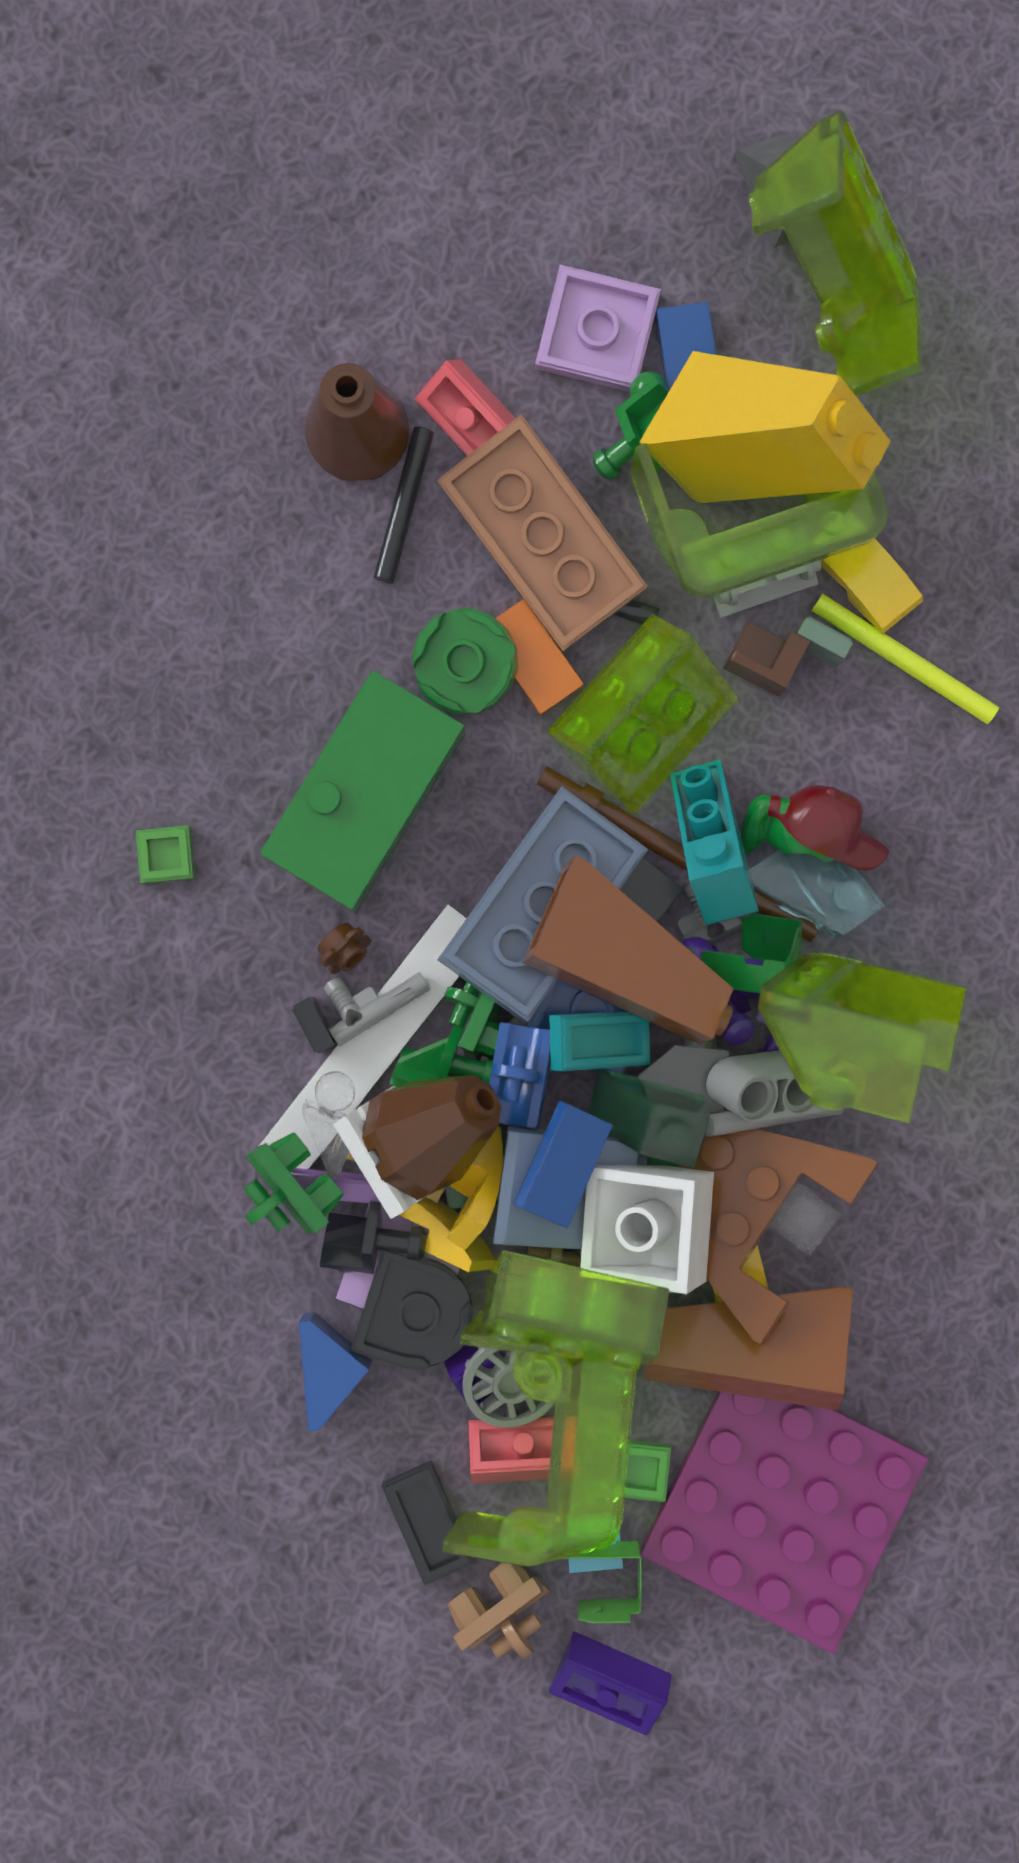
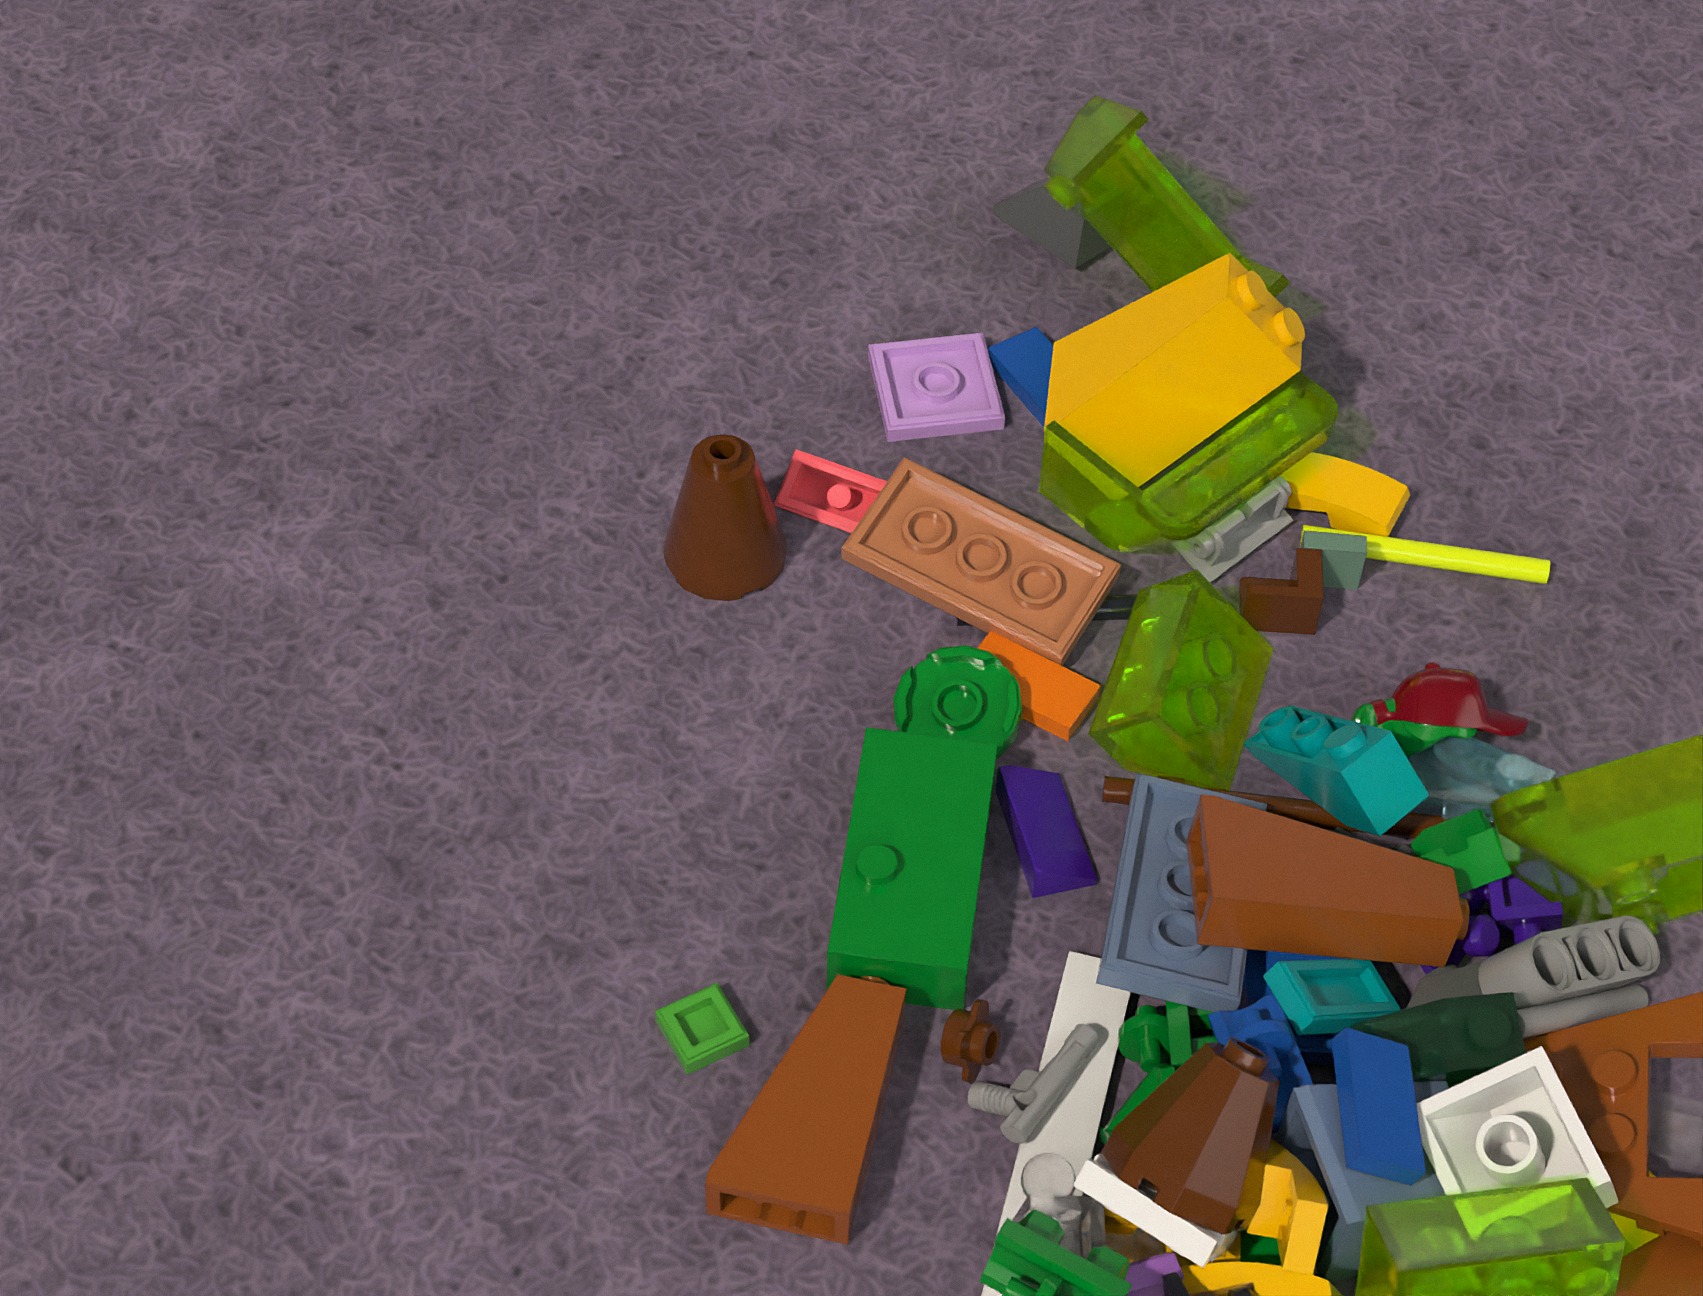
camera: 20 degrees left, 35 degrees down
(208, 968) = (813, 1126): none -> dark orange slope
(314, 1025) = (981, 1134): black tile -> none
(403, 504) = (811, 598): black bar -> none
(482, 792) = (1043, 830): none -> dark purple slope
(634, 417) = (1022, 426): green piece -> none

